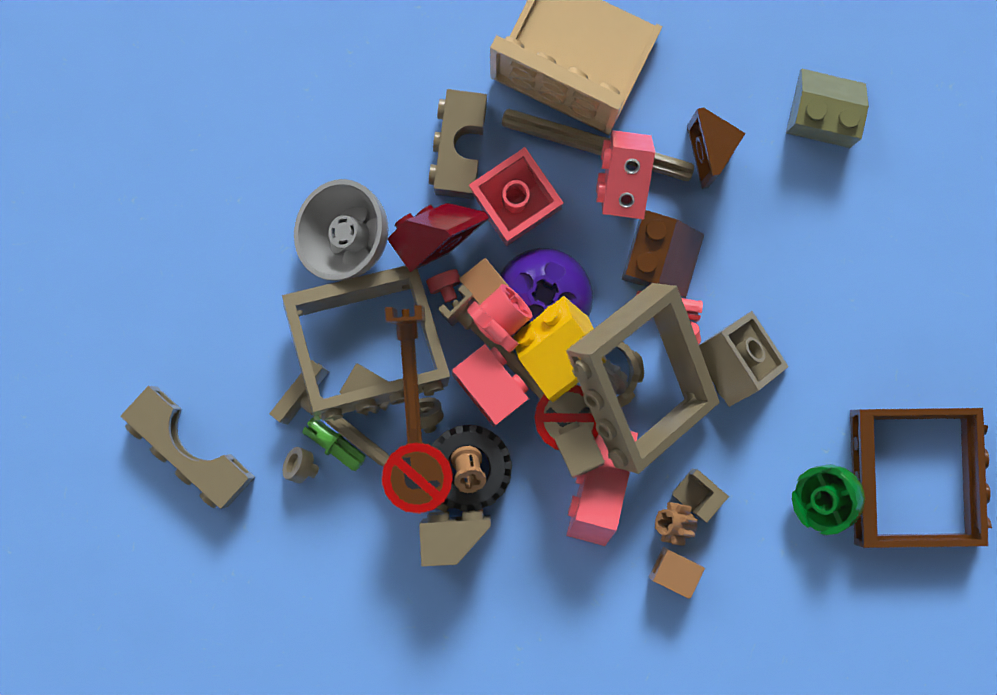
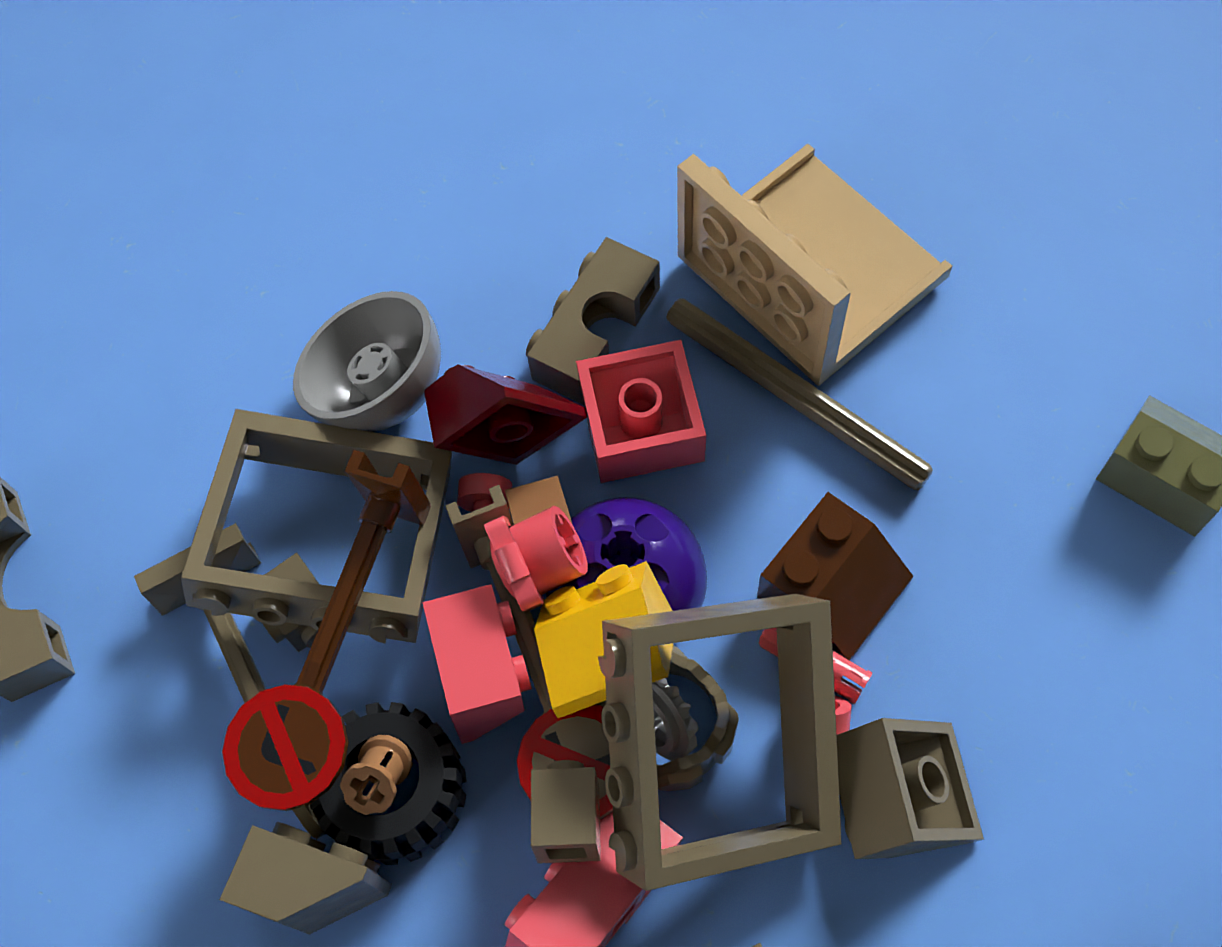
camera: 30 degrees right, 20 degrees down
(299, 465) = (142, 678): dark tan tile -> none
(334, 444) = (208, 666): bright green axle -> none
(430, 414) = (364, 676): dark tan tile -> none
(627, 174) = (815, 429): coral piece -> none
(712, 144) = (974, 440): reddish brown slope -> none

